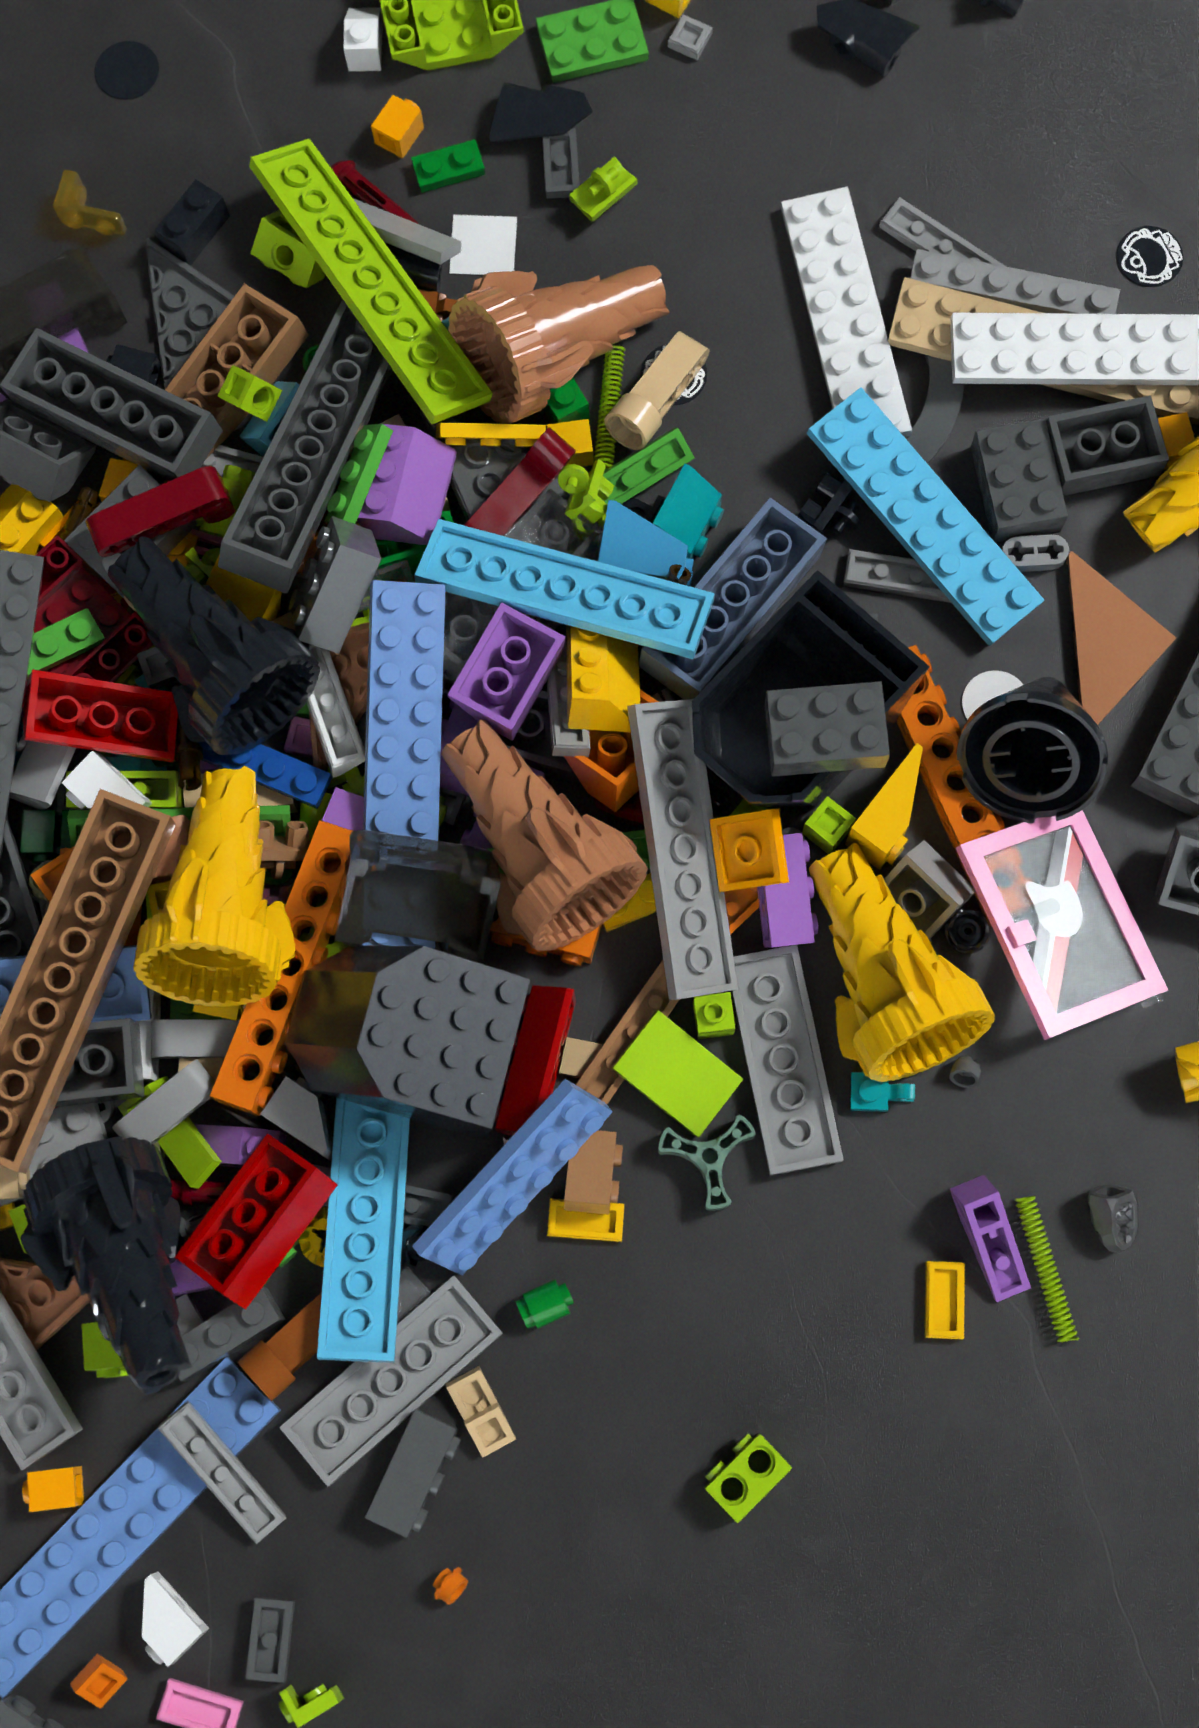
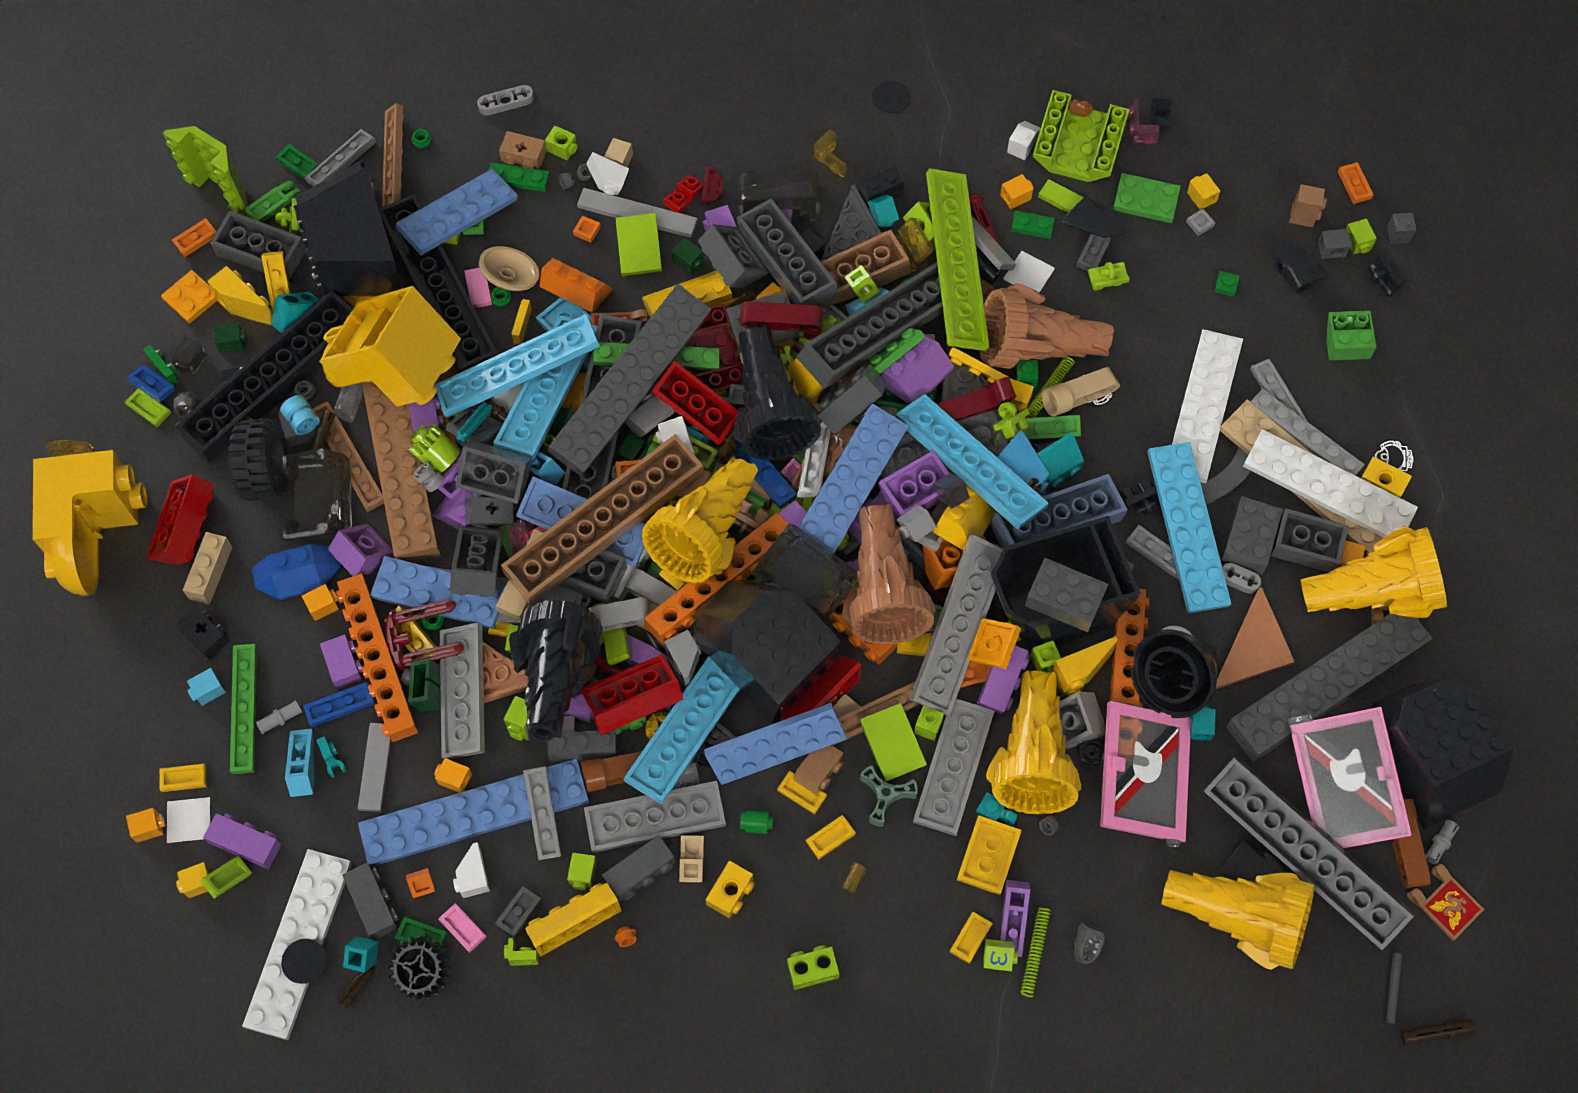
camera: 25 degrees right, 10 degrees down
(216, 257) = (883, 210): none -> teal brick
(291, 281) = (916, 241): none -> clear yellow plate
(330, 1525) = (582, 871): none -> lime brick
(357, 1607) = (573, 919): none -> yellow slope
(464, 101) = (1059, 196): none -> lime tile
(538, 731) = (916, 523): none -> light grey brick
(553, 1450) = (731, 876): none -> yellow brick
(564, 652) = (951, 490): none -> clear smoke brick
(664, 1264) = (830, 837): none -> yellow tile
(731, 1307) = (854, 876): none -> clear yellow pin
(778, 113) = (1226, 283): none -> green plate
(905, 1164) = (989, 855): none -> yellow plate
(997, 102) = (1350, 335): none -> bright green slope
(1001, 1307) = (999, 955): none -> lime brick
(1106, 806) = (1203, 724): none -> teal brick
(1175, 289) = (1395, 478): none -> yellow brick

